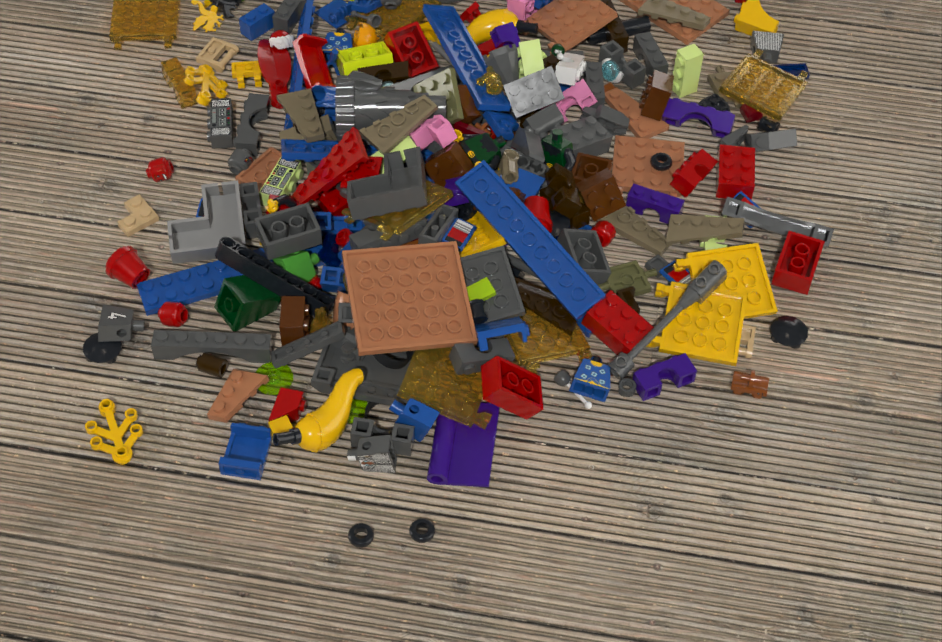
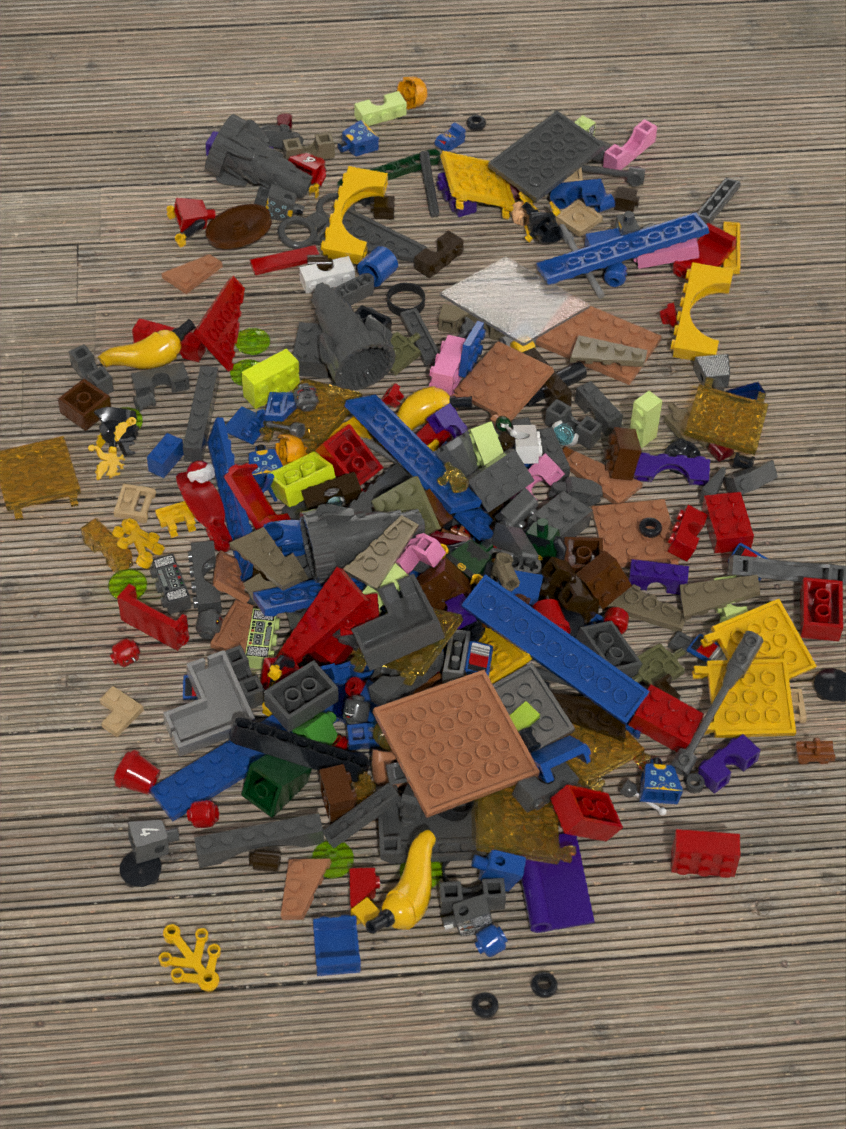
camera: 15 degrees left, 0 degrees up
(184, 117) = (124, 577): none -> clear neon green dish
(204, 160) = (152, 622): none -> red panel
(270, 125) = (227, 577): none -> nougat wing
(333, 254) = (356, 710): none -> dark grey head
(386, 479) = (491, 940): none -> blue head
(612, 448) = (705, 853): none -> red brick

